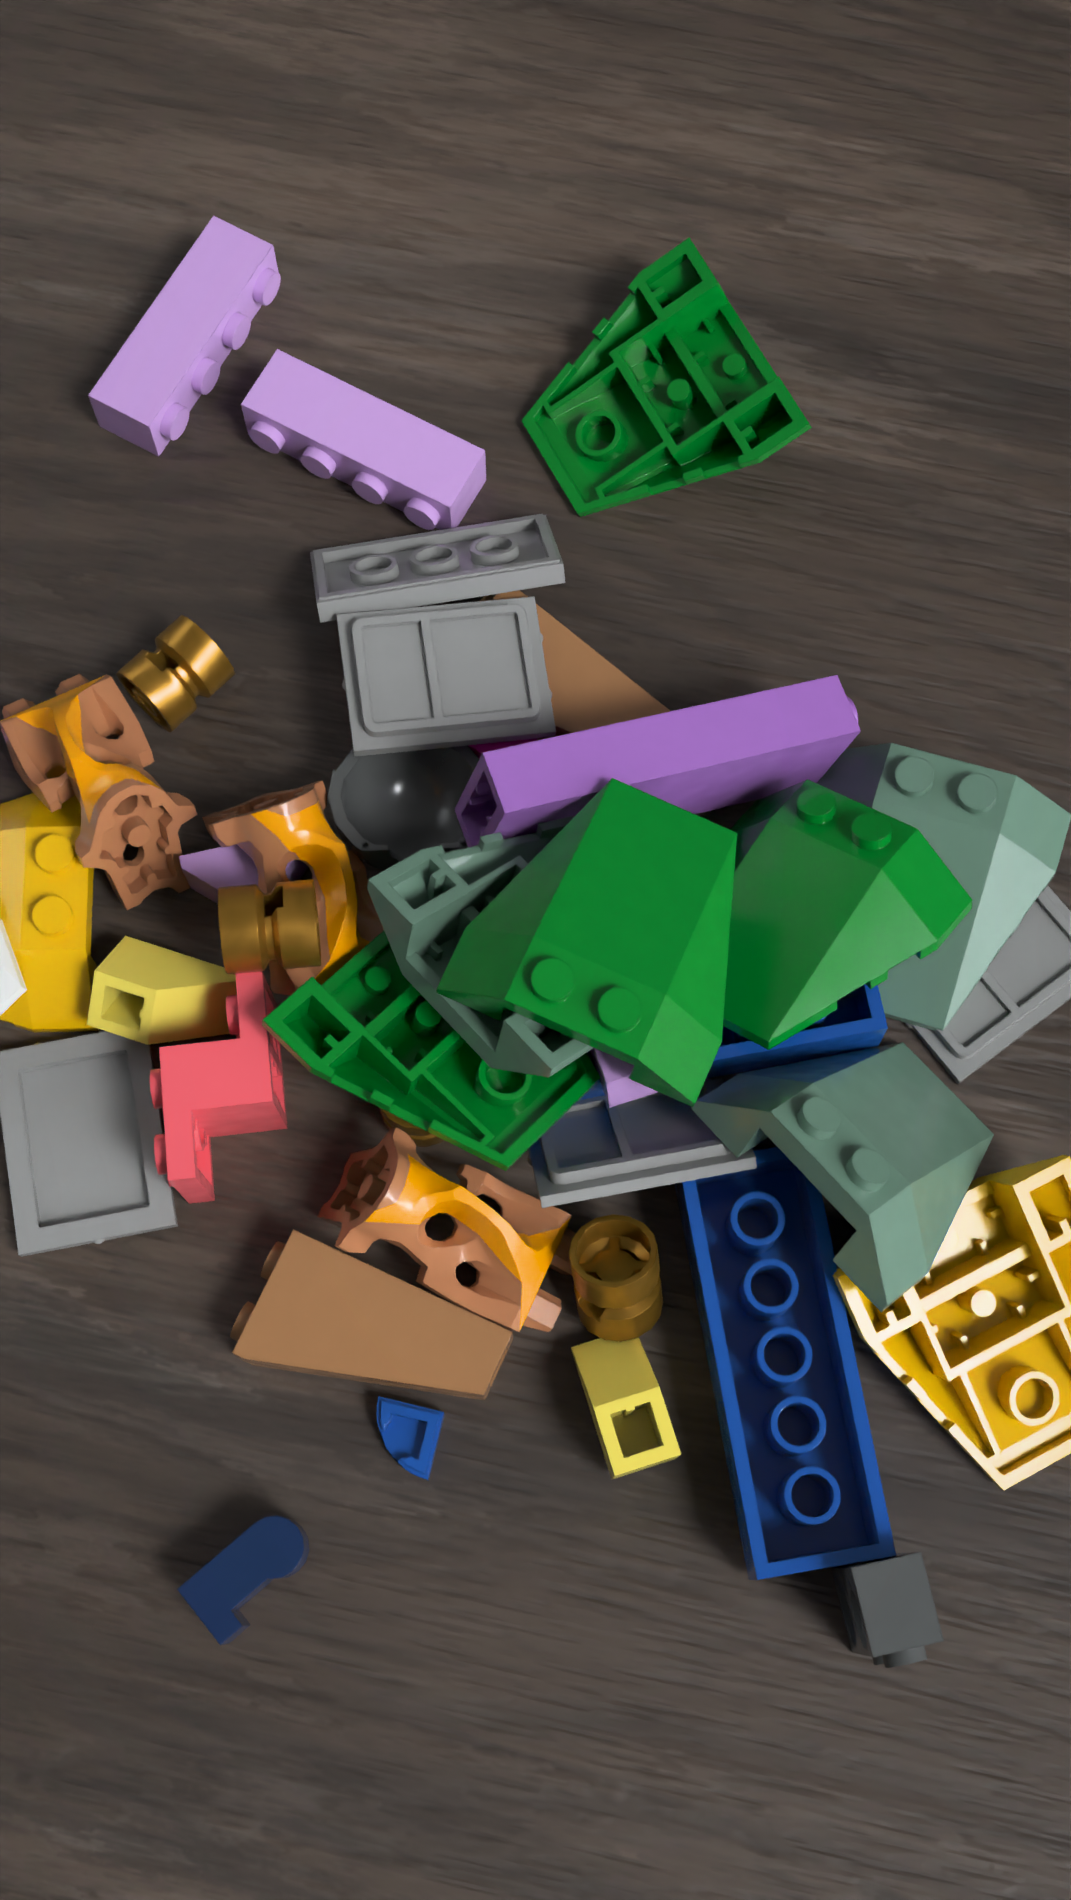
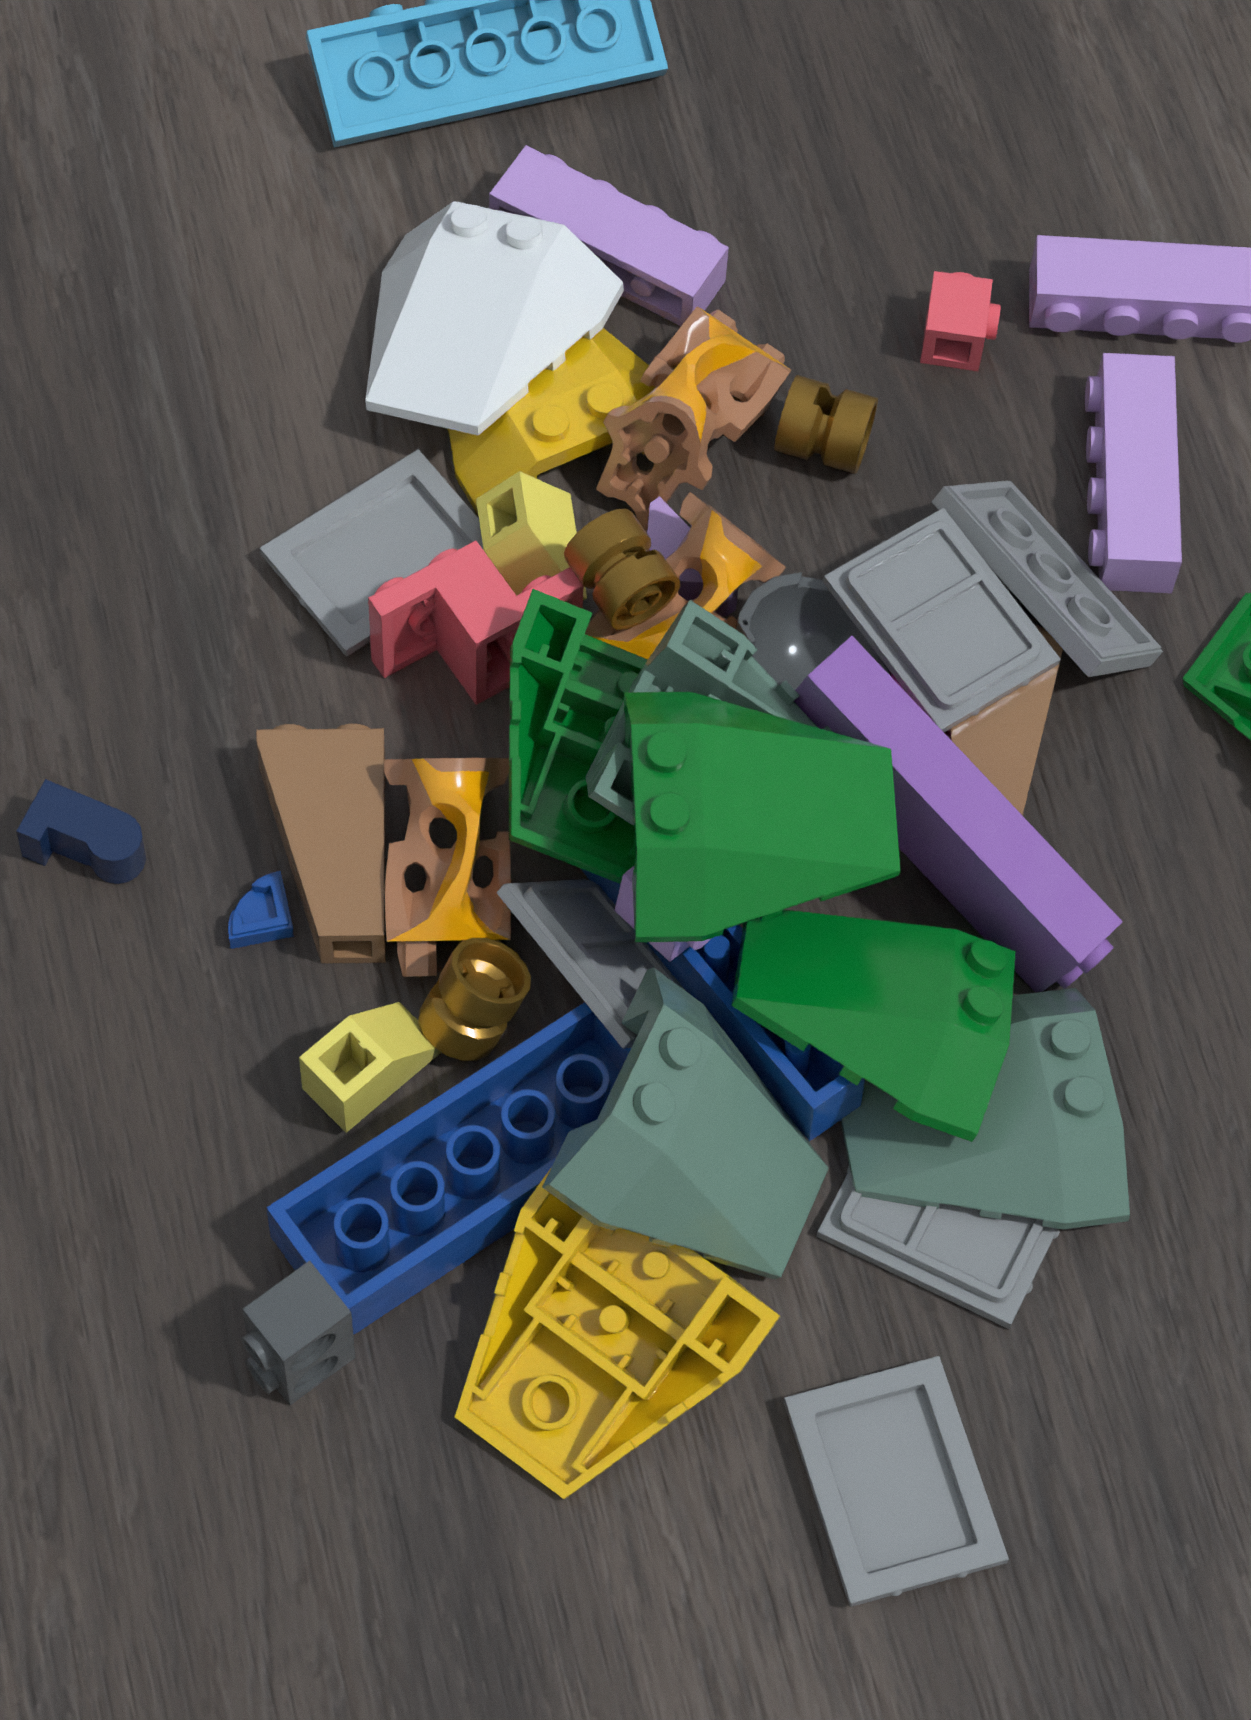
camera: 60 degrees right, 10 degrees down
(127, 508) = (958, 320): none -> coral brick

